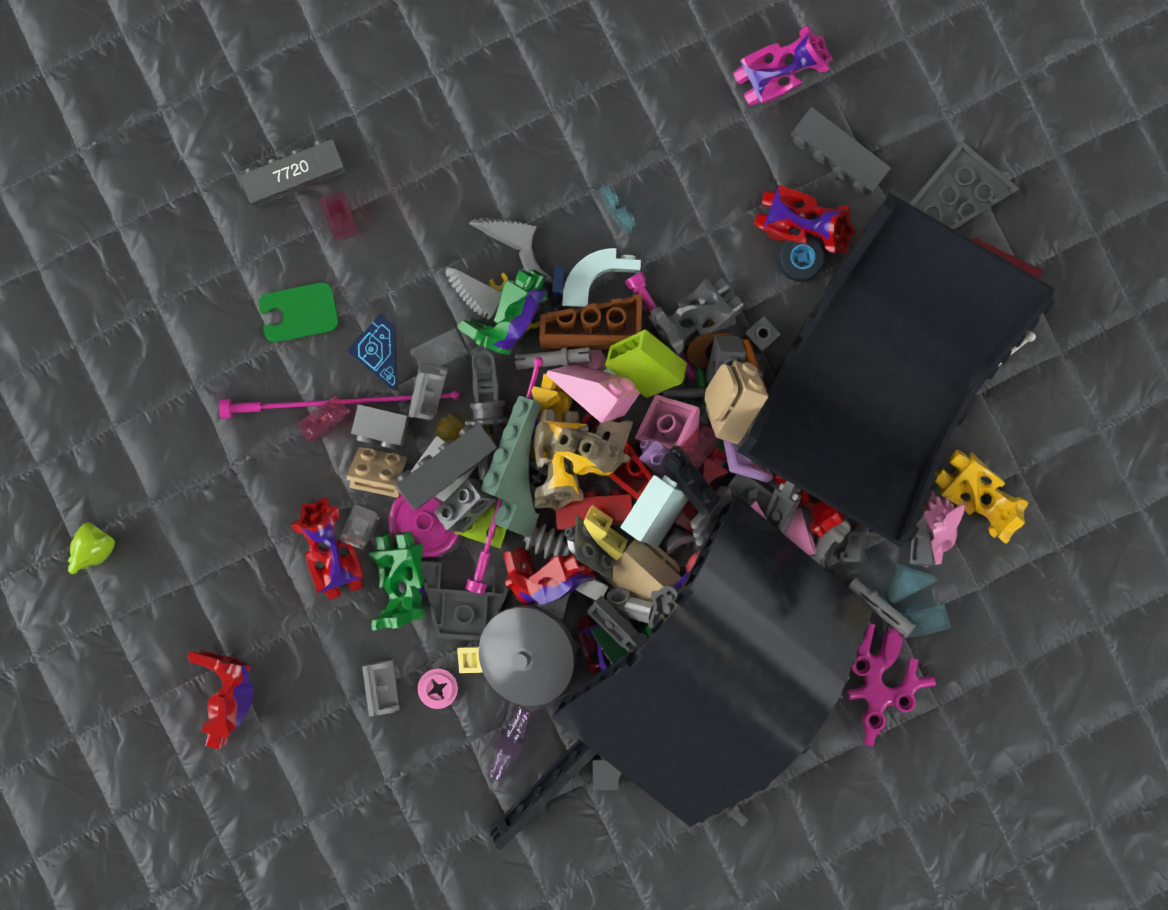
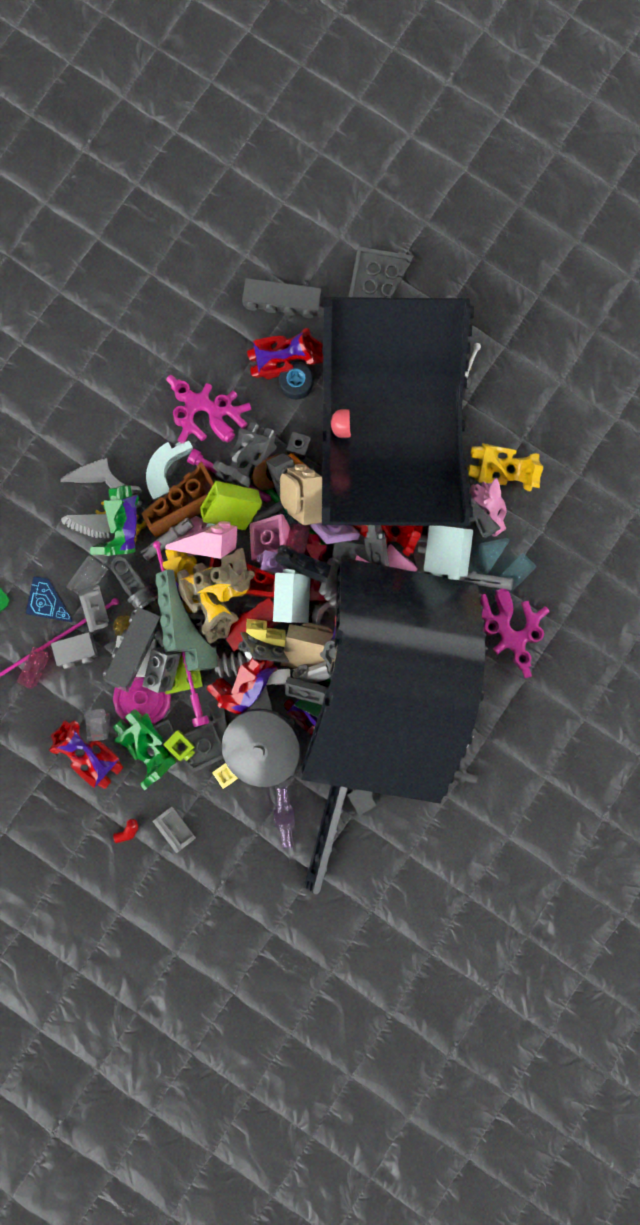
camera: 30 degrees left, 5 degrees down
(231, 702) = (74, 898): red hips -> none
(329, 662) = (128, 833): none -> red arm
(376, 471) = (89, 683): tan bracket -> none
(430, 595) = (173, 743): none -> lime brick
(435, 700) = (204, 809): bright pink gear -> none
(559, 281) = (142, 485): dark blue tile -> none
(621, 218) = (159, 420): clear light blue slope -> none
(678, 222) = (200, 402): none -> dark pink plant
(808, 52) = (223, 244): dark pink hips -> none
(824, 339) = (341, 423): none -> coral hair
(860, 557) = (448, 551): none -> light aqua brick

